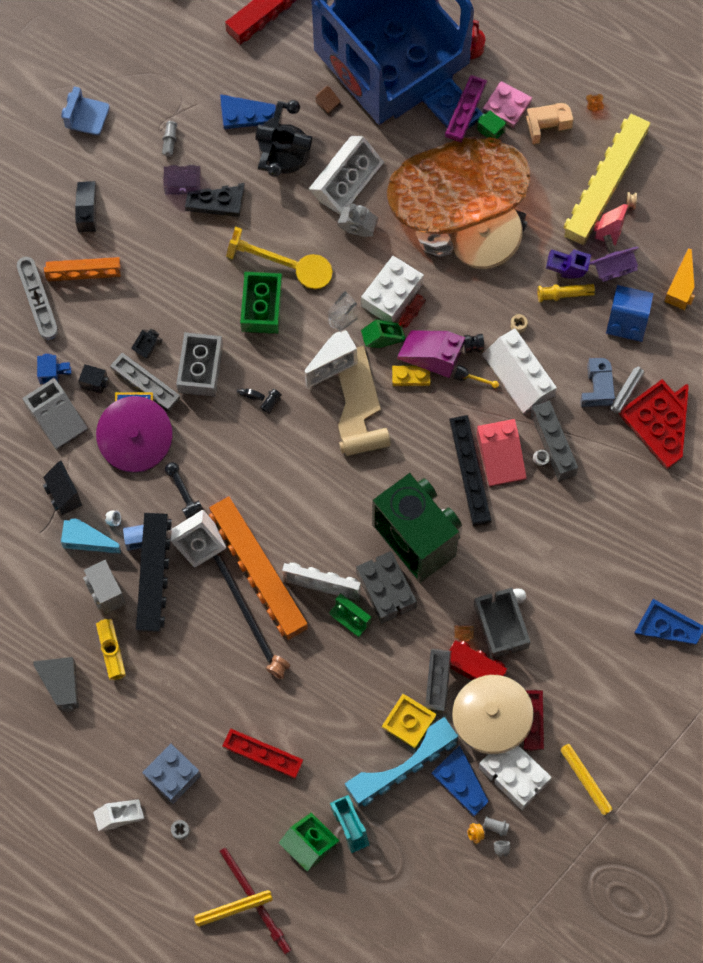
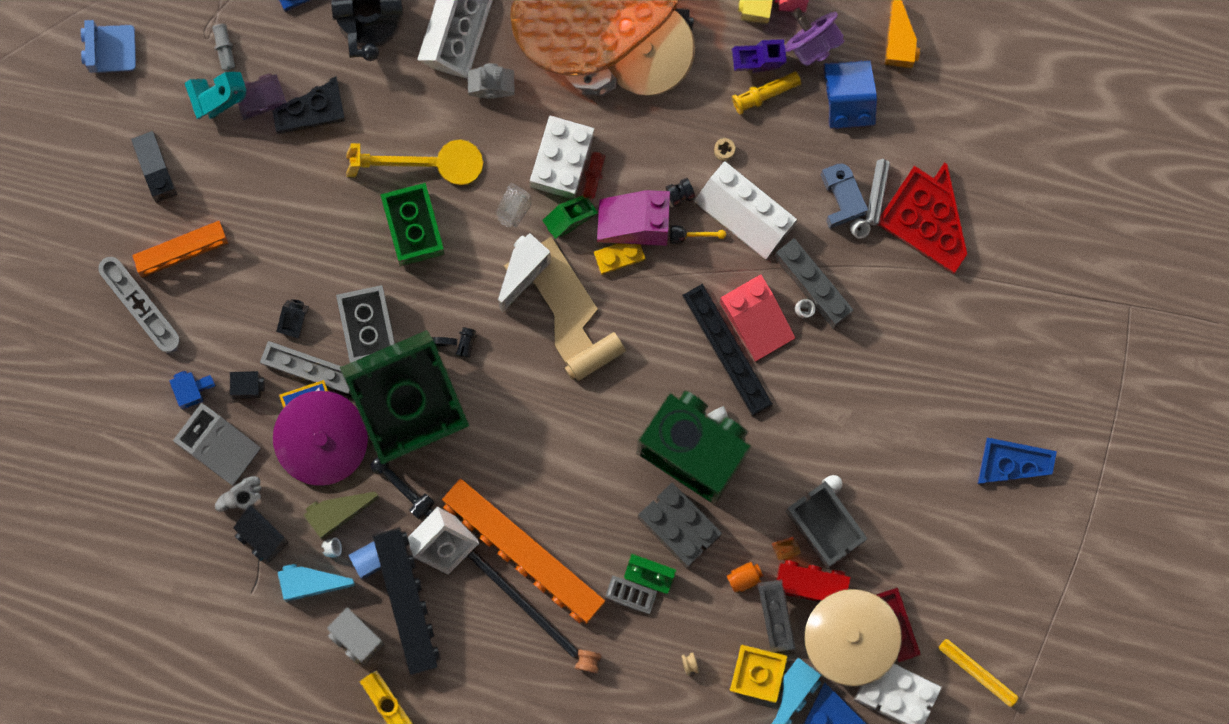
camera: 25 degrees left, 10 degrees up
(57, 453) = (240, 495): none -> light grey animal
(124, 493) = (333, 513): none -> olive slope
(150, 169) = (218, 97): none -> teal piece
(206, 418) = (404, 396): none -> dark green brick
(325, 633) = (628, 603): none -> light grey slope
(327, 583) = (614, 544): white plate -> none
(357, 695) = (689, 664): none -> tan bush
(423, 643) = (745, 577): none -> orange brick
(607, 410) = (864, 226): none -> white hinge

